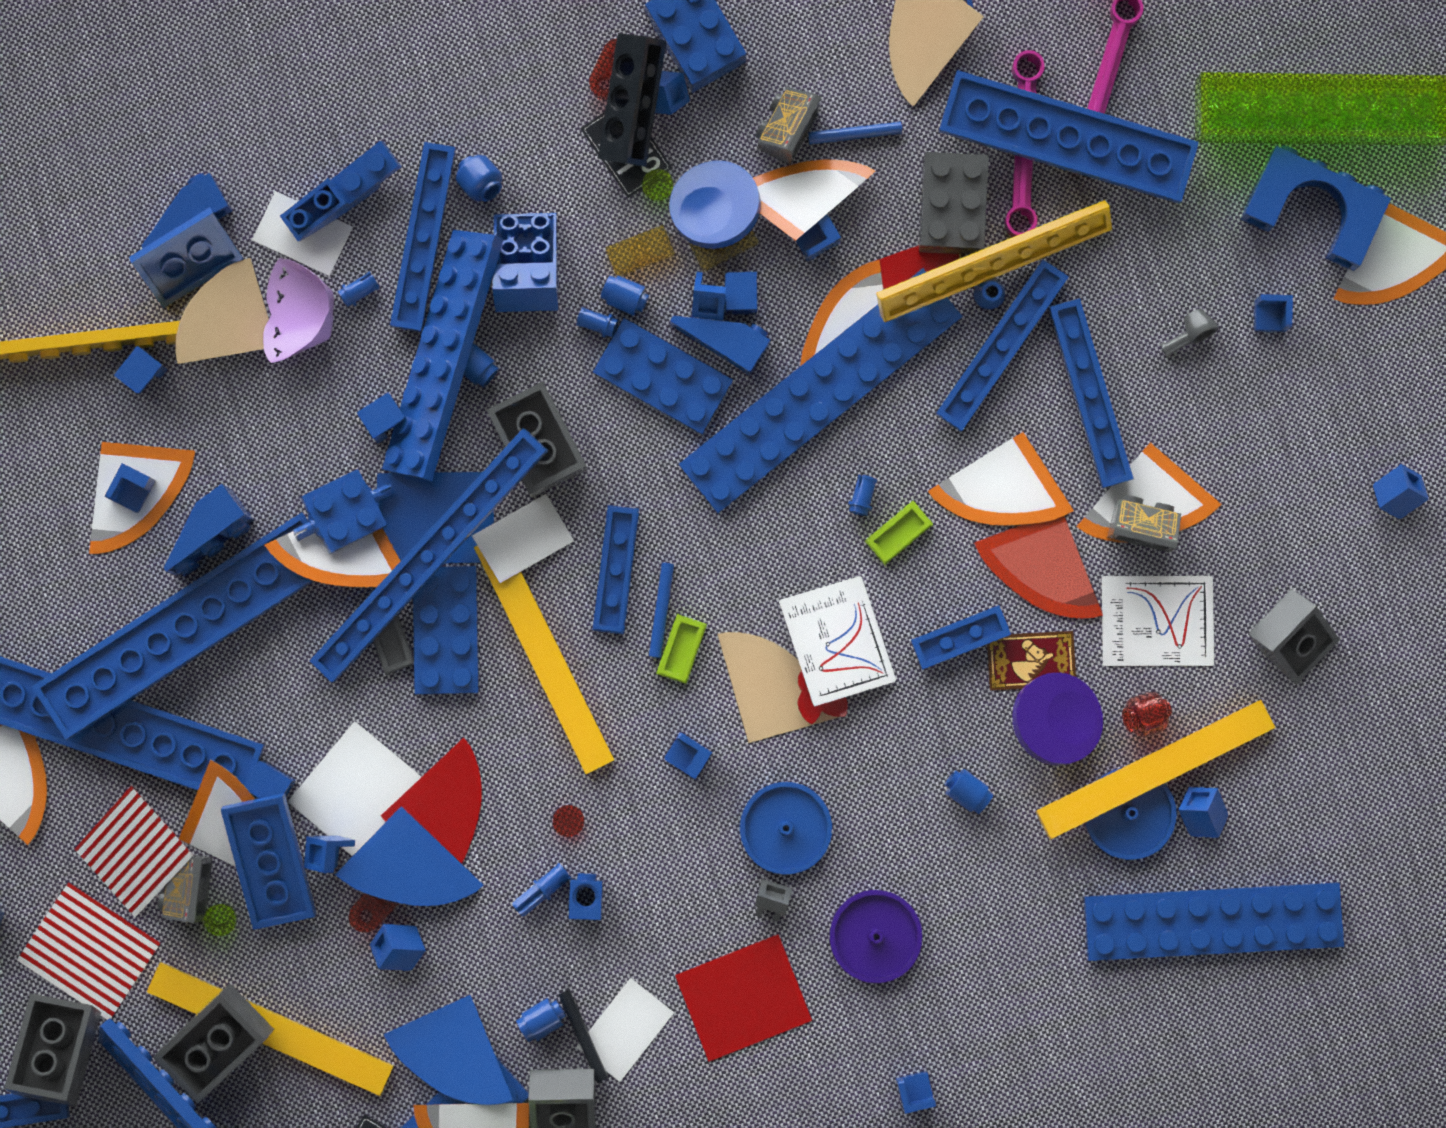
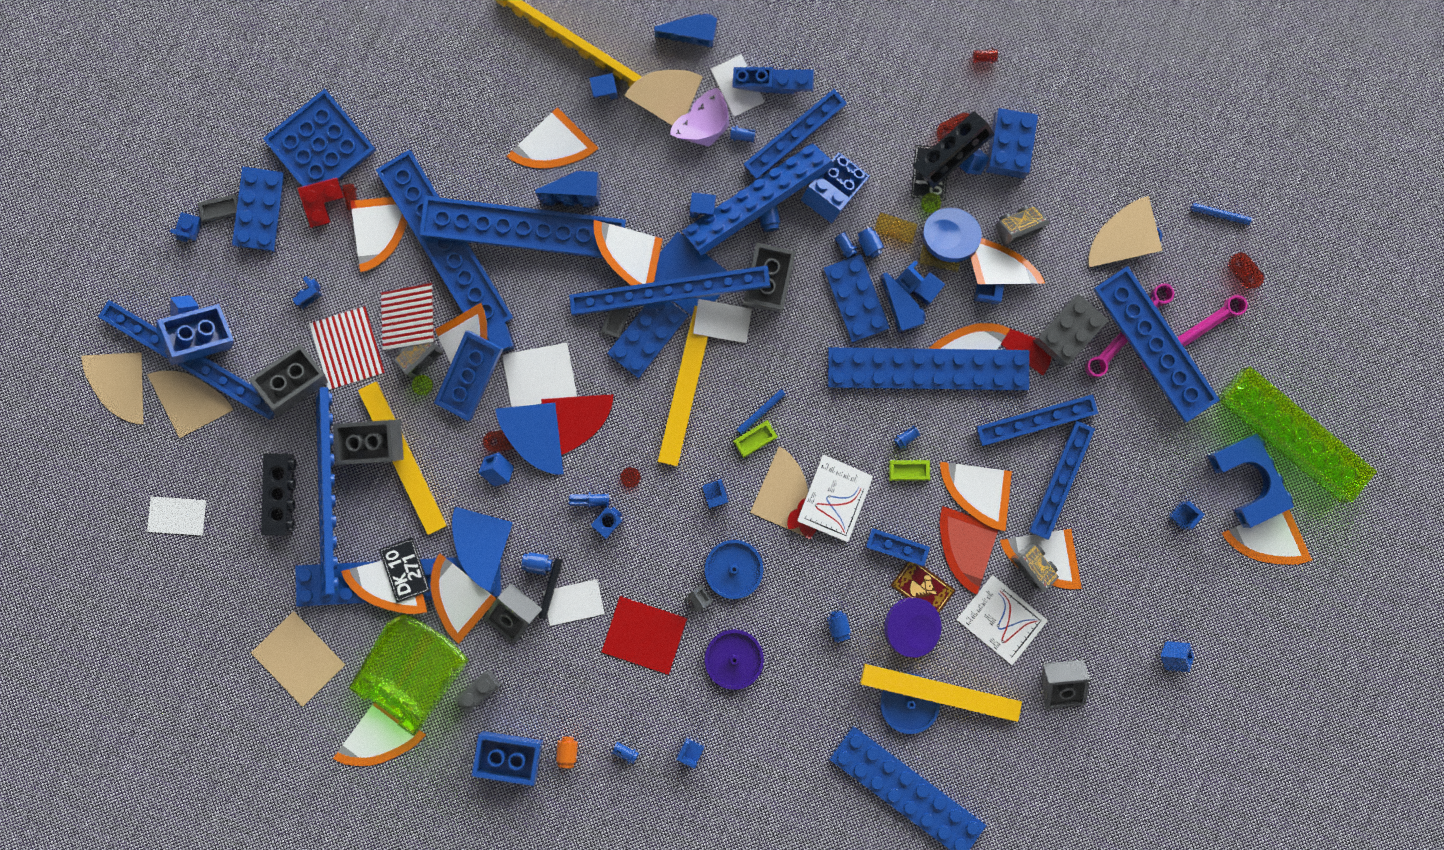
camera: 35 degrees right, 0 degrees up
(130, 488) = (552, 139): blue panel -> none
(185, 257) = (671, 49): blue plate -> none
(323, 852) = (498, 393): blue panel -> none
(343, 511) = (645, 235): blue plate -> none
(479, 178) = (846, 128): blue head -> none
(615, 569) = (755, 373): blue tile -> none
(855, 133) = (1049, 256): blue bar -> none
(983, 300) = (1046, 386): blue bar -> none
(994, 261) = (1068, 375): yellow tile -> none
(1146, 714) = (959, 661): clear red head -> none
(1198, 328) = (1142, 491): dark grey bar -> none
(1203, 812) = (947, 733): blue panel -> none

